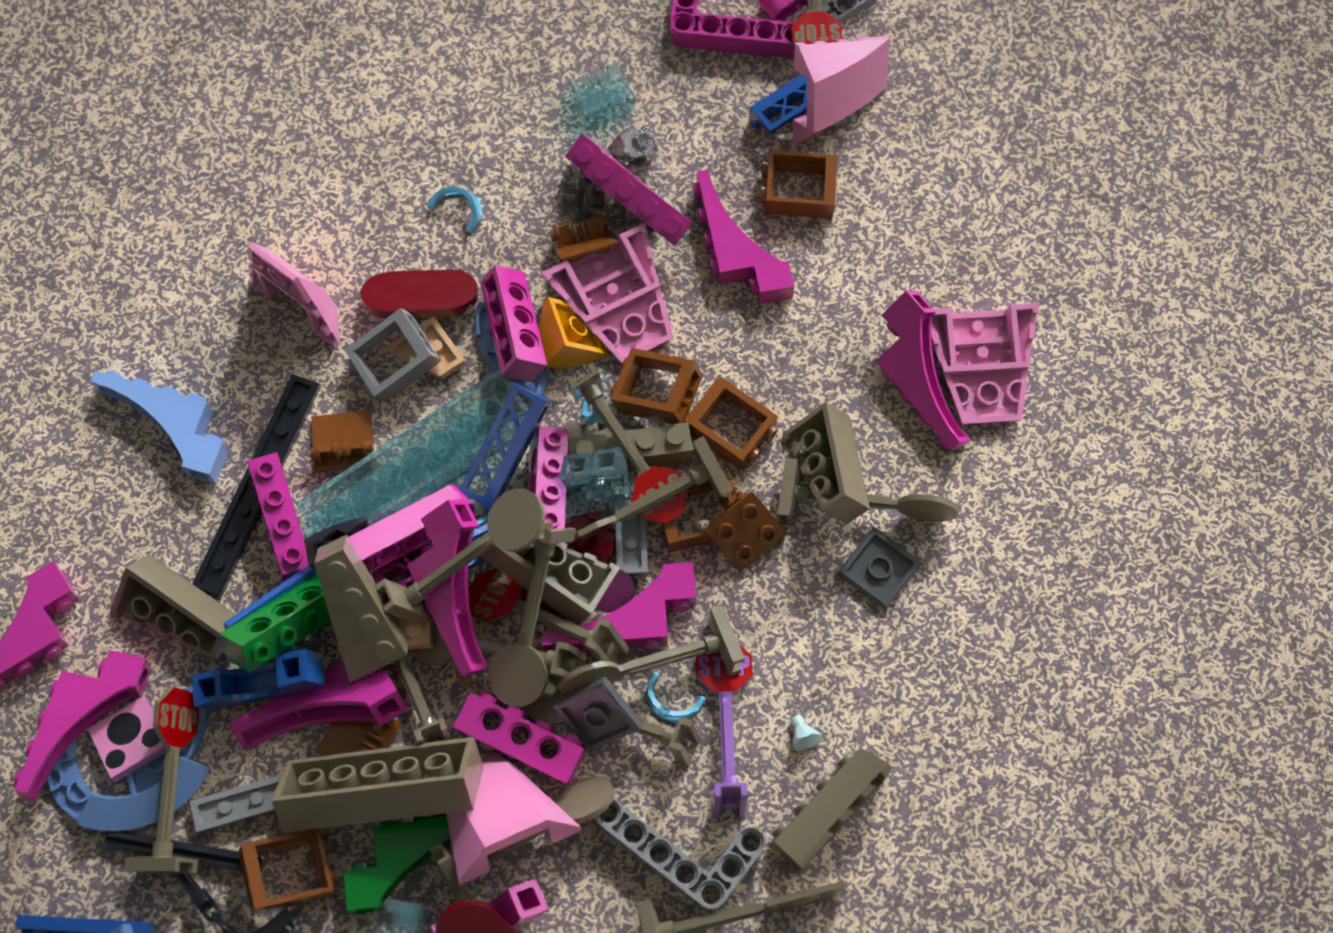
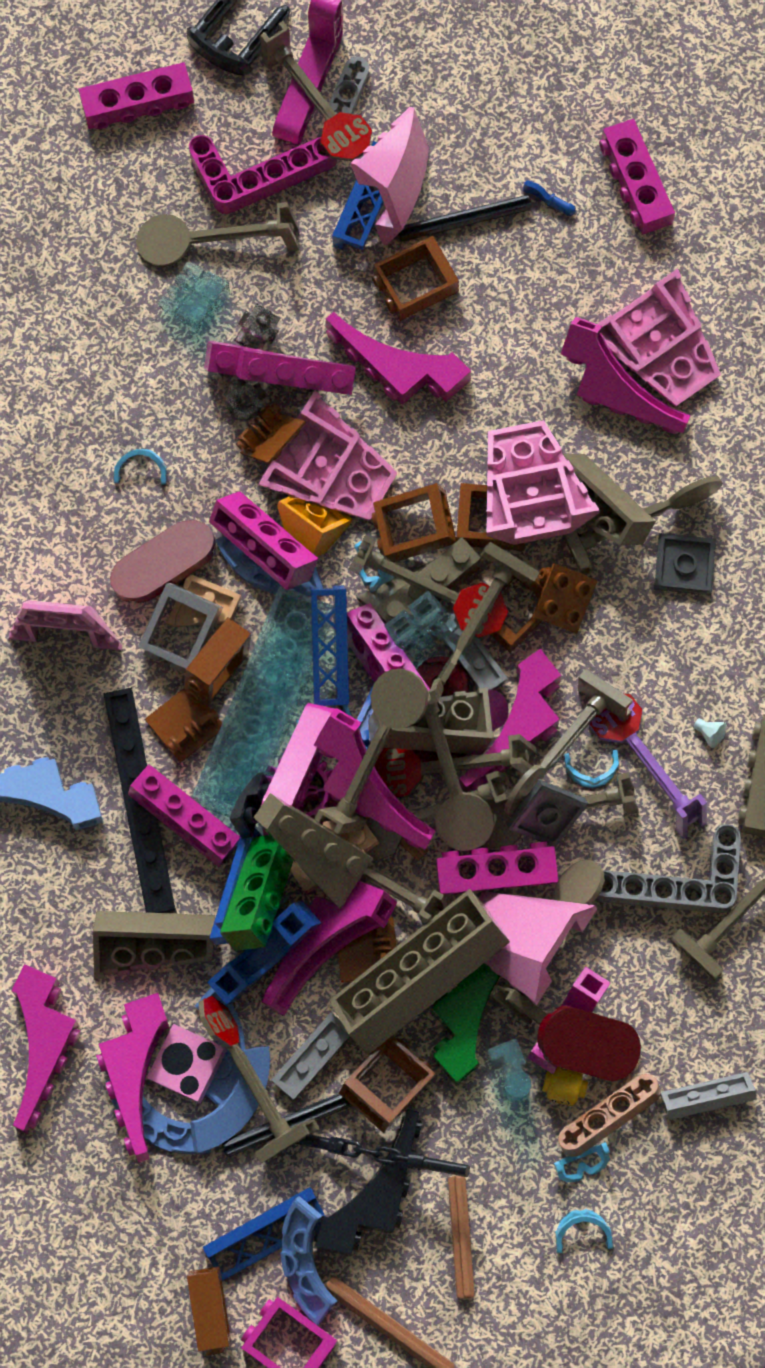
camera: 30 degrees left, 5 degrees up
(398, 402) = (217, 662): none -> dark orange window
(614, 35) = (167, 239): none -> dark tan piece
(777, 414) = (532, 486): none -> bright pink wedge
(879, 159) = (465, 217): none -> black axle
(965, 187) = (551, 200): none -> blue piece
(1066, 171) = (627, 138): none -> dark pink brick

